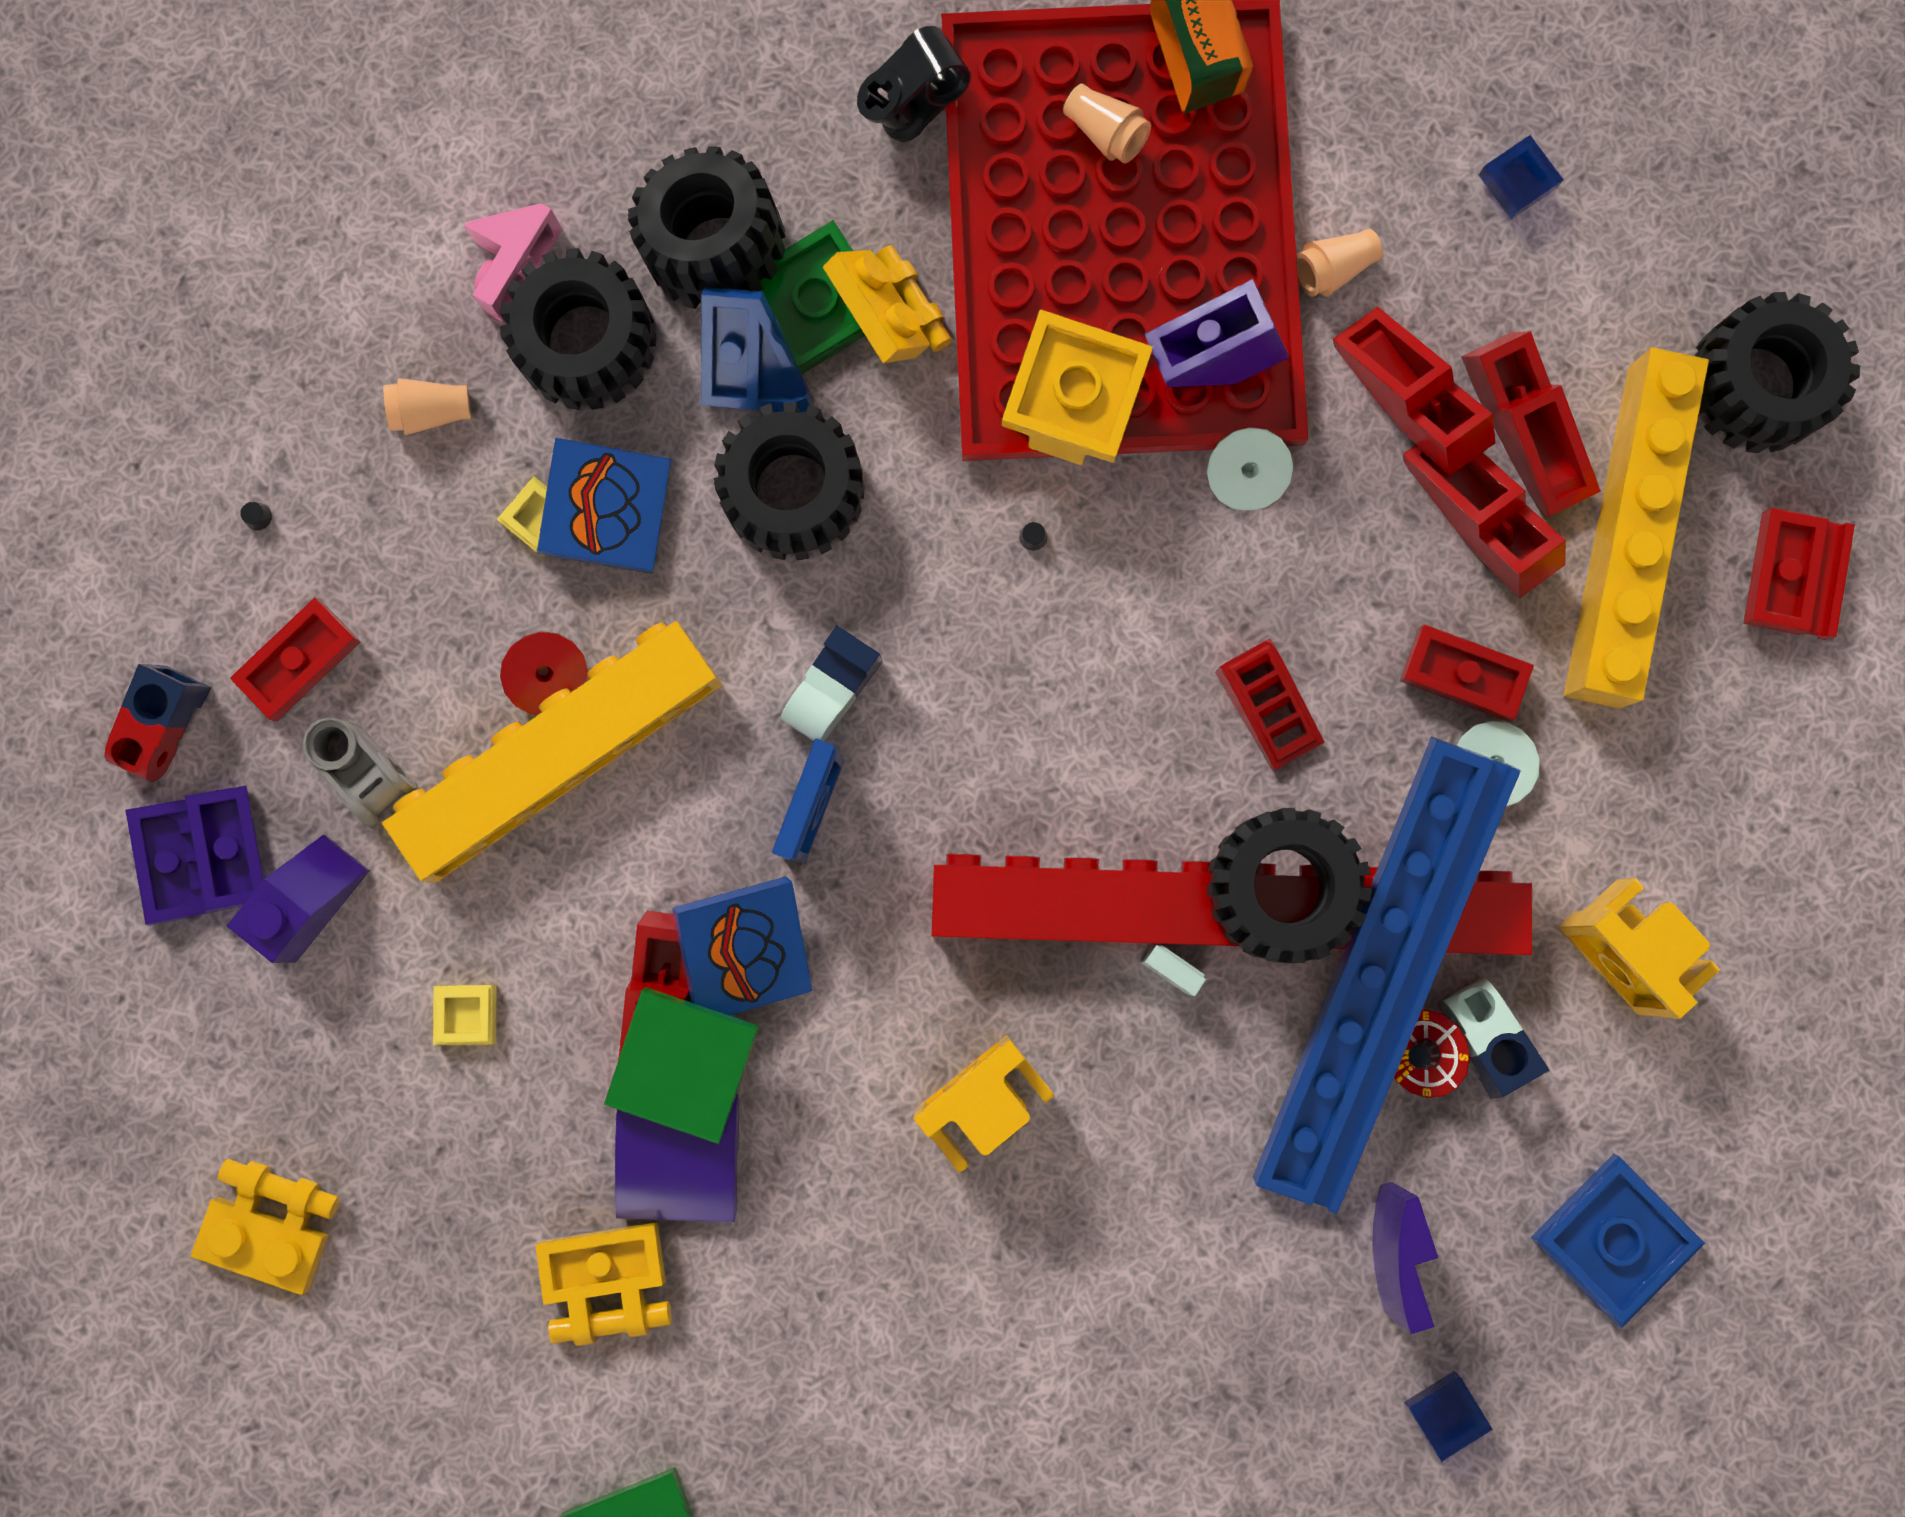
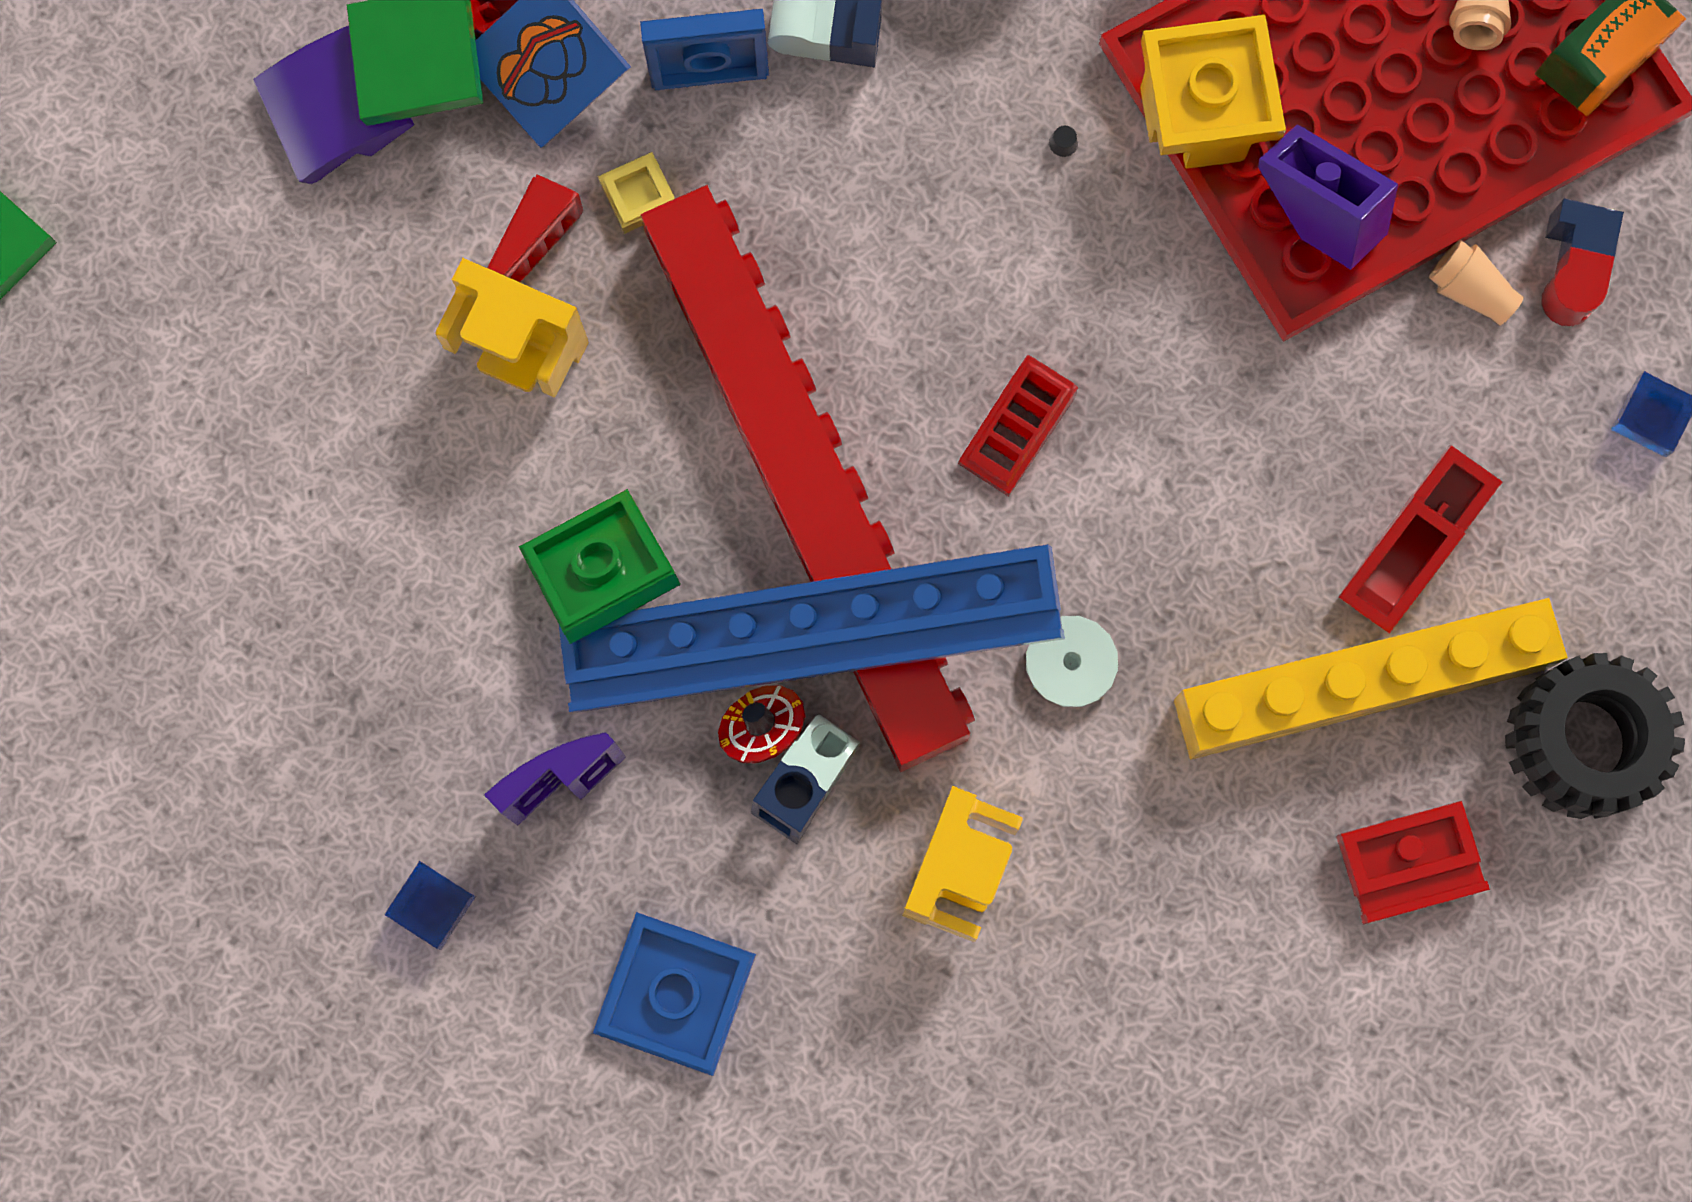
camera: 60 degrees right, 5 degrees down
(599, 1265) = (206, 86): yellow plate -> none
(886, 1030) = (536, 226): none -> red slope
(895, 925) = (635, 189): none -> light yellow tile
(1174, 969) = (722, 452): light aqua tile -> none
(1224, 1126) = (599, 566): none -> green tile
(1250, 469) = (1231, 299): light aqua piece -> none
(1339, 886) = (836, 441): black tyre -> none
(1364, 165) = (1584, 261): none -> leg
(1417, 390) = (1389, 413): red slope -> none
(1466, 673) = (1144, 591): red plate -> none
(1493, 519) = (1311, 534): red slope -> none

